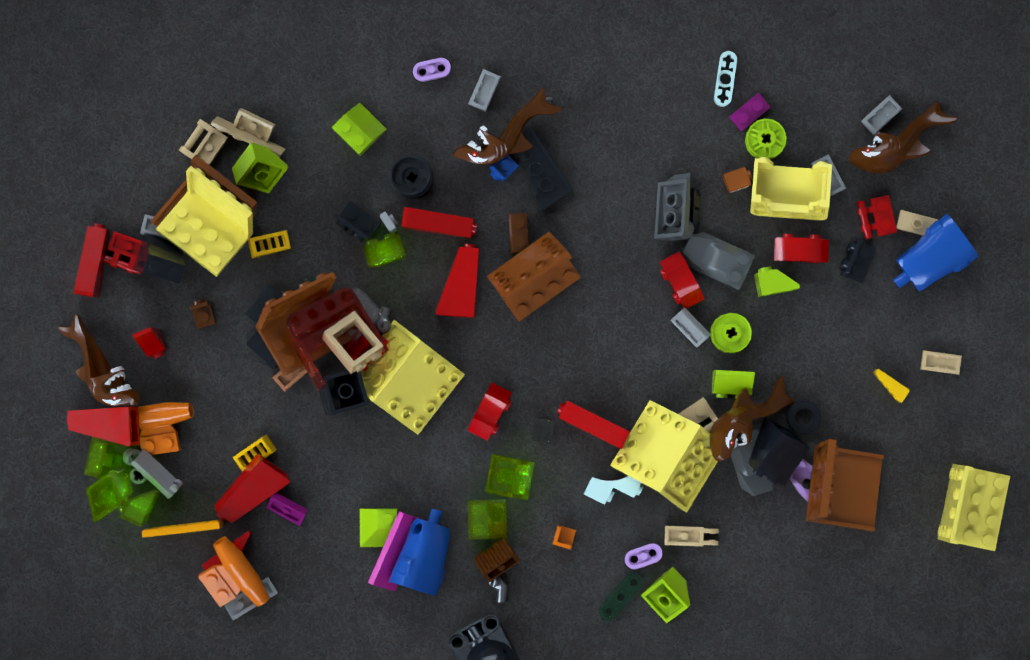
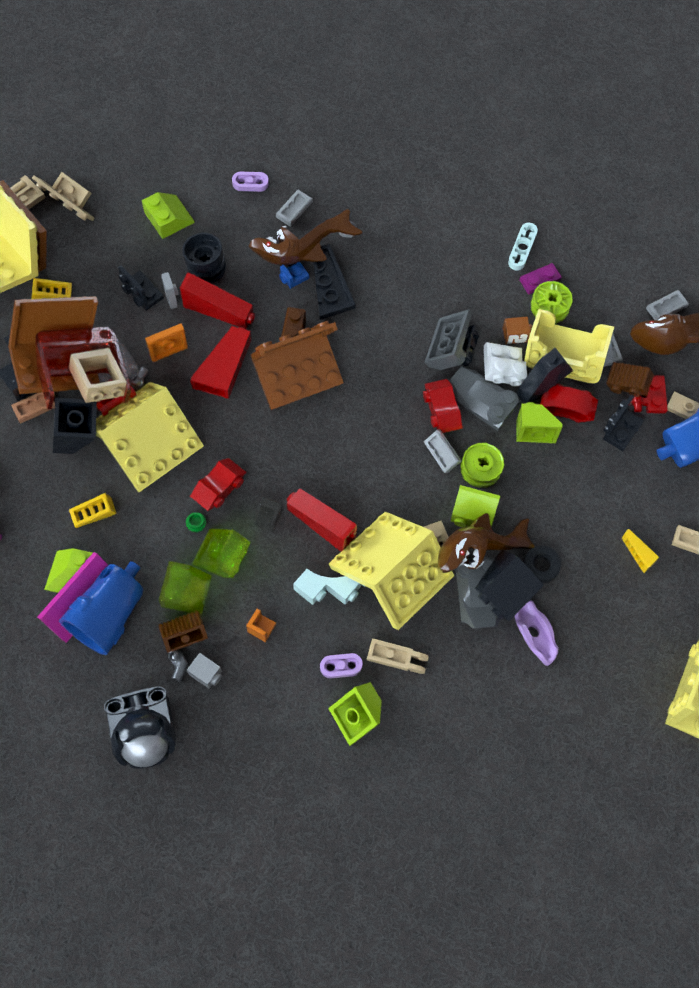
camera: 10 degrees right, 20 degrees down
(258, 168) = (64, 221): lime slope -> none
(384, 251) = (157, 317): clear neon green slope -> none
(394, 455) = (103, 513): none -> yellow slope
(402, 280) = (166, 342): none -> orange tile
(478, 451) = (196, 522): none -> green plate
(525, 590) = (205, 671): none -> light grey brick
(618, 605) = (301, 712): clear green plate -> none
(732, 221) = (504, 364): none -> white plate
(773, 231) = (543, 376): none -> black slope
(844, 487) = (572, 638): dark orange bracket -> none
(855, 212) = (630, 379): none -> reddish brown brick

